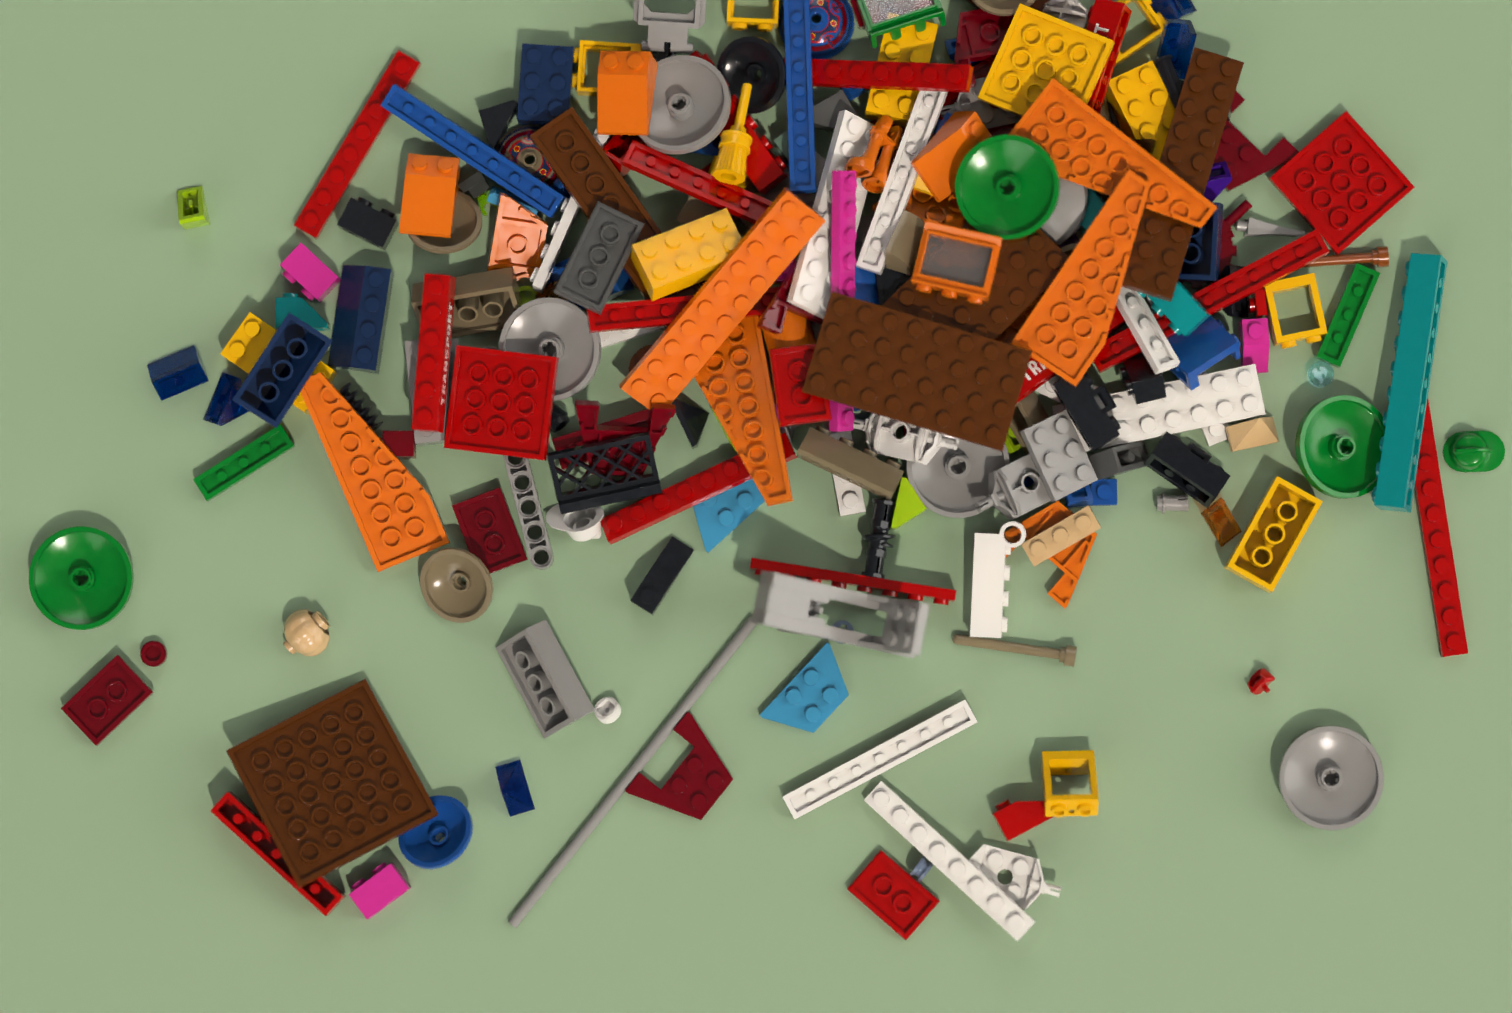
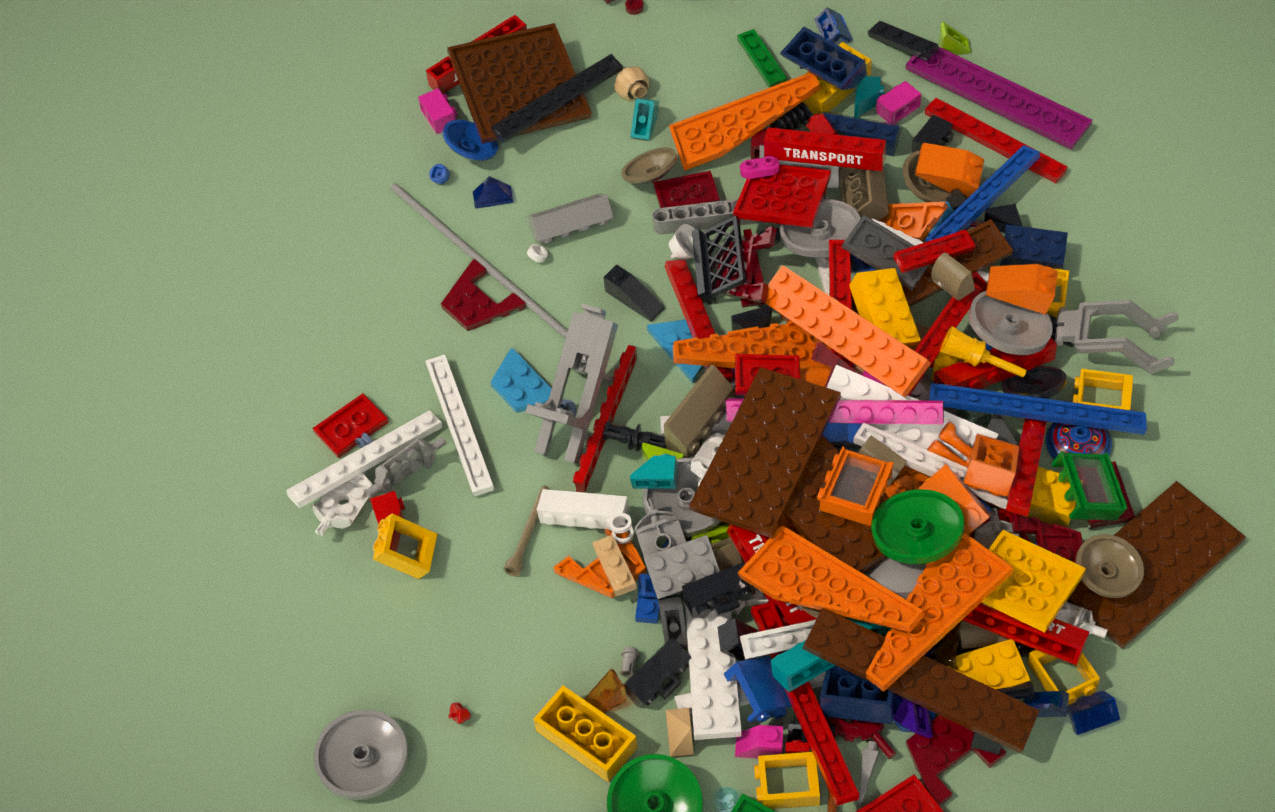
camera: 100 degrees right, 30 degrees down
(198, 275) = (903, 40): none -> black plate
(280, 145) = (1002, 97): none -> magenta plate
(353, 725) = (556, 98): none -> black tile
(366, 606) = (644, 118): none -> teal slope
(386, 363) = (821, 124): none -> red brick
(462, 435) = (759, 167): none -> dark pink plate
(488, 865) = (439, 174): none -> blue tile
(597, 199) = (930, 251): none -> red plate
(633, 175) = (952, 277): none -> dark tan brick
(899, 111) = (991, 465): none -> orange slope
(939, 500) = (656, 473): none -> teal slope
(963, 819) = (403, 464): none -> light grey plate

